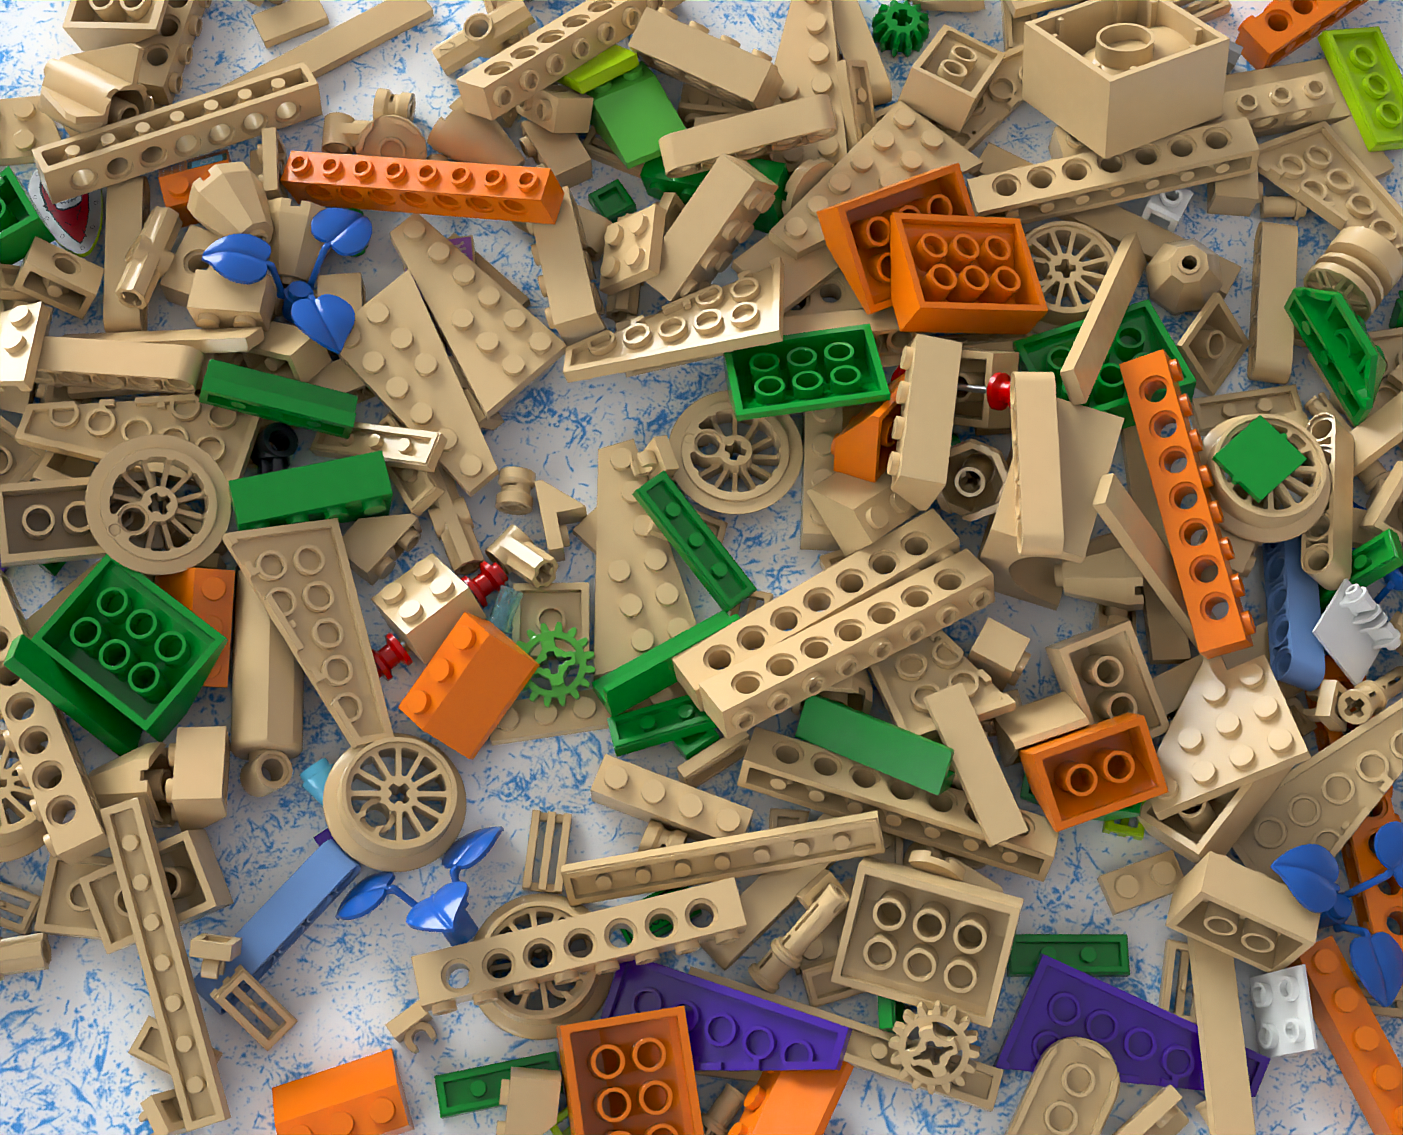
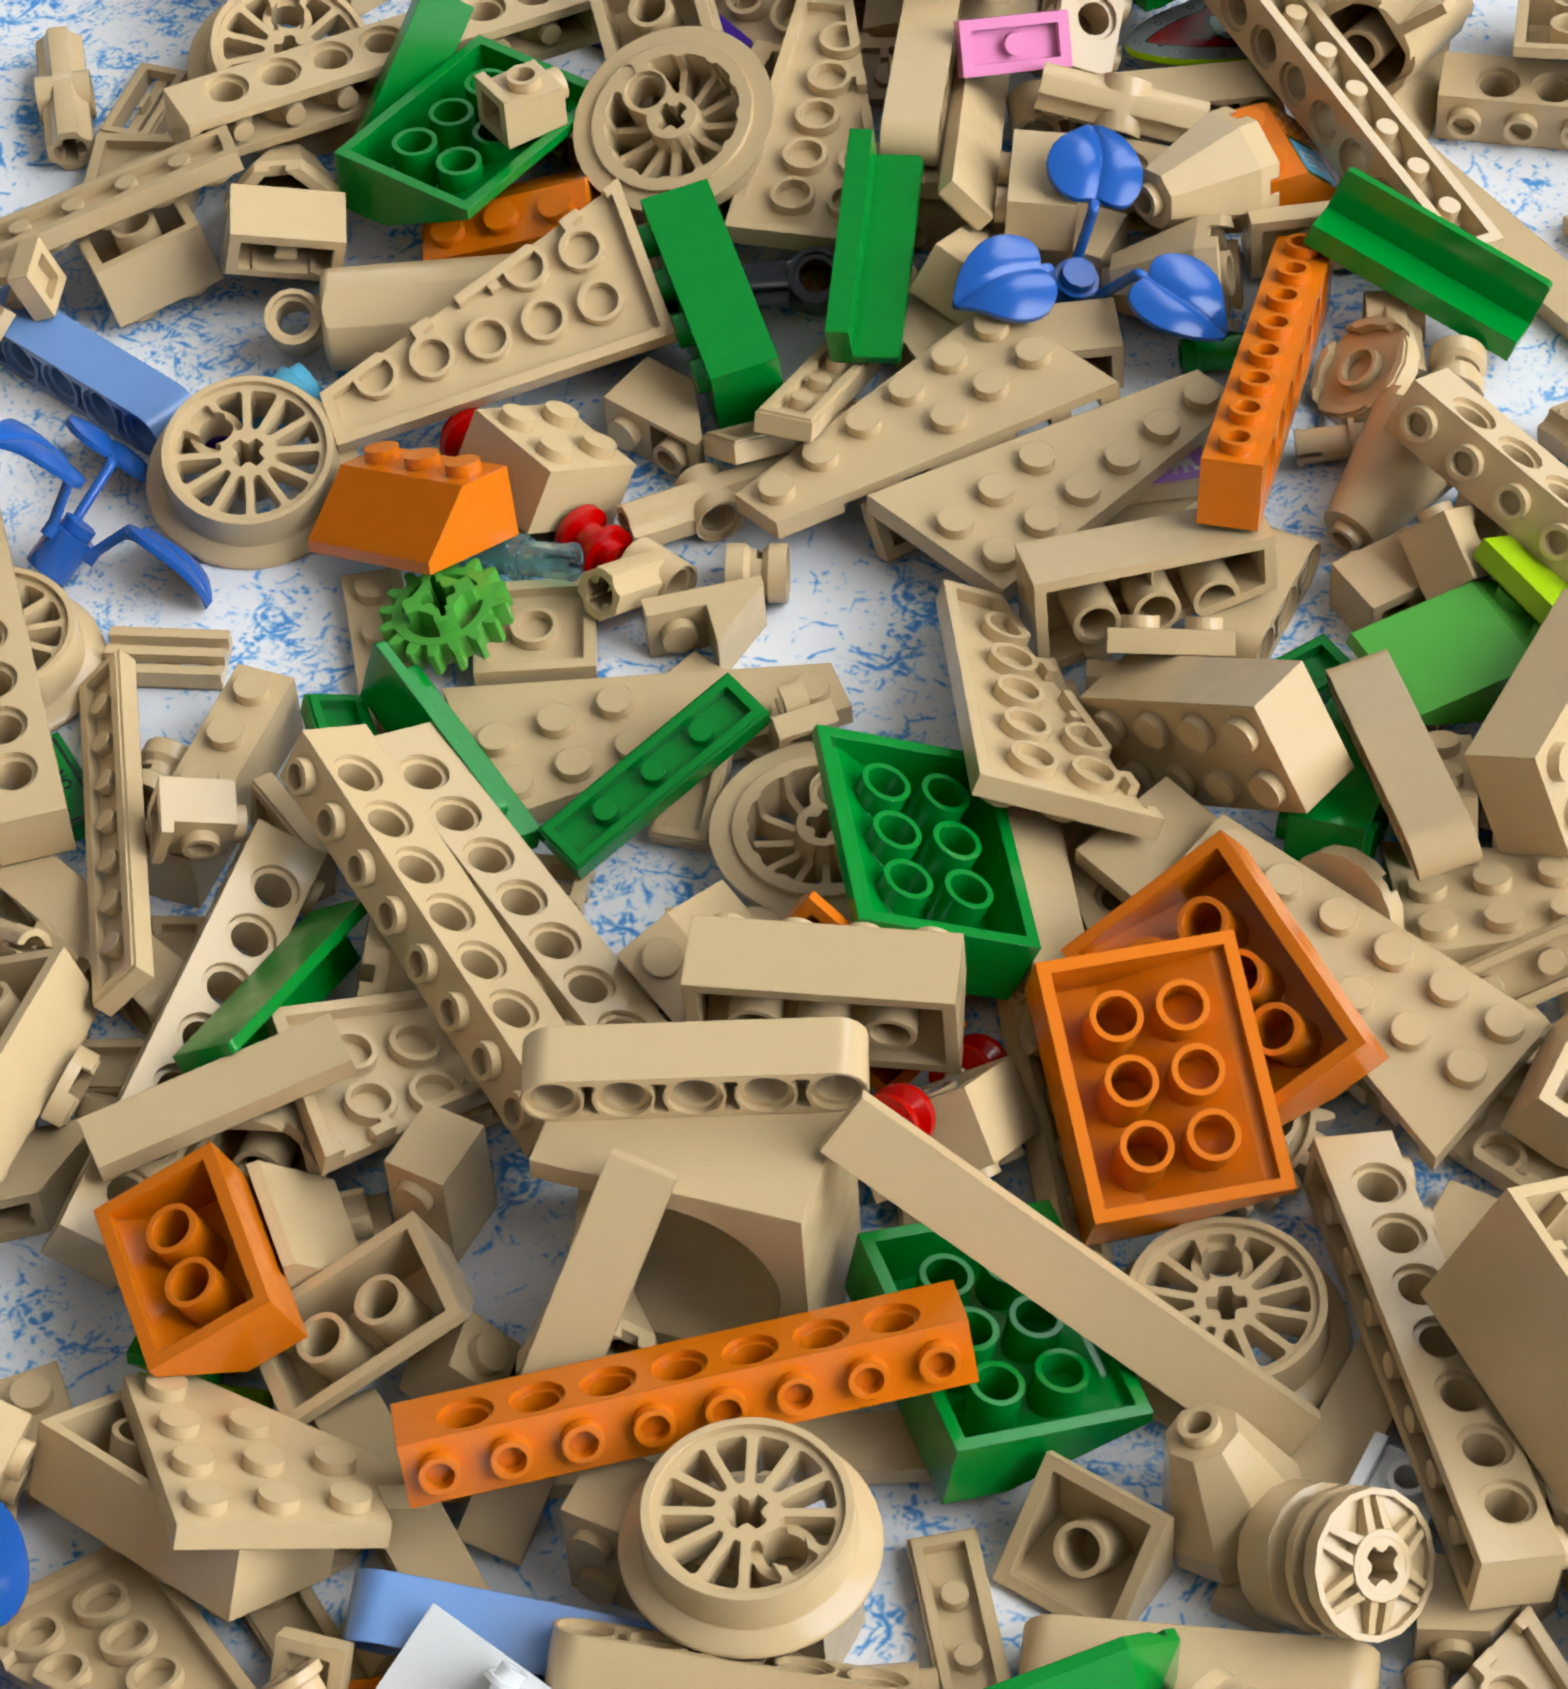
camera: 95 degrees right, 20 degrees down
(95, 306) = (1012, 43): none -> bright pink tile
(136, 607) = (522, 102): none -> tan brick
(323, 102) = (1428, 263): none -> green panel
(741, 801) = (194, 818): none -> tan brick
(1233, 223) = (1336, 1560): none -> tan wheel
(1259, 458) = (755, 1484): green piece -> none

